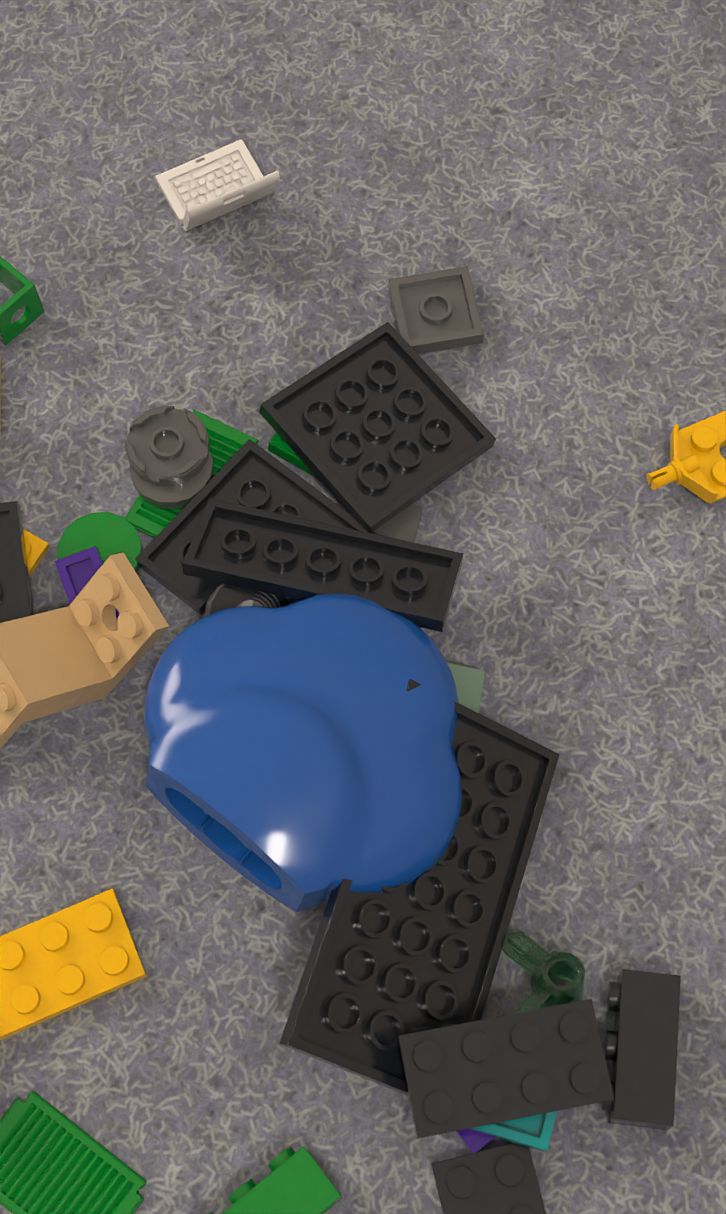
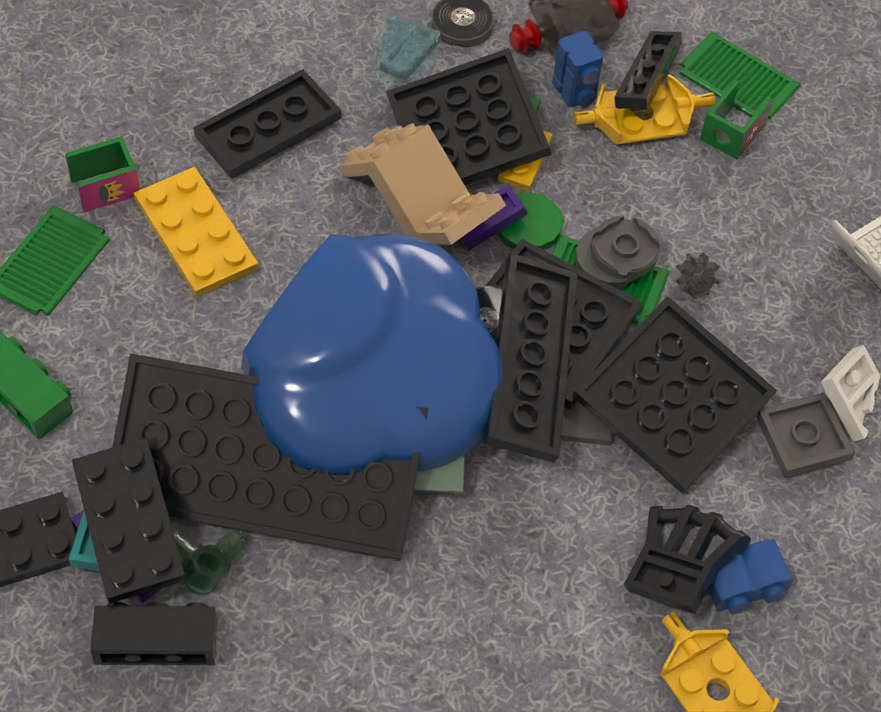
camera: 75 degrees right, 10 degrees down
(214, 376) = (697, 265): none -> clear smoke gear
(386, 252) = (852, 390): none -> white wing
(606, 399) = (751, 577): none -> blue brick
(606, 468) = (676, 577): none -> black plate

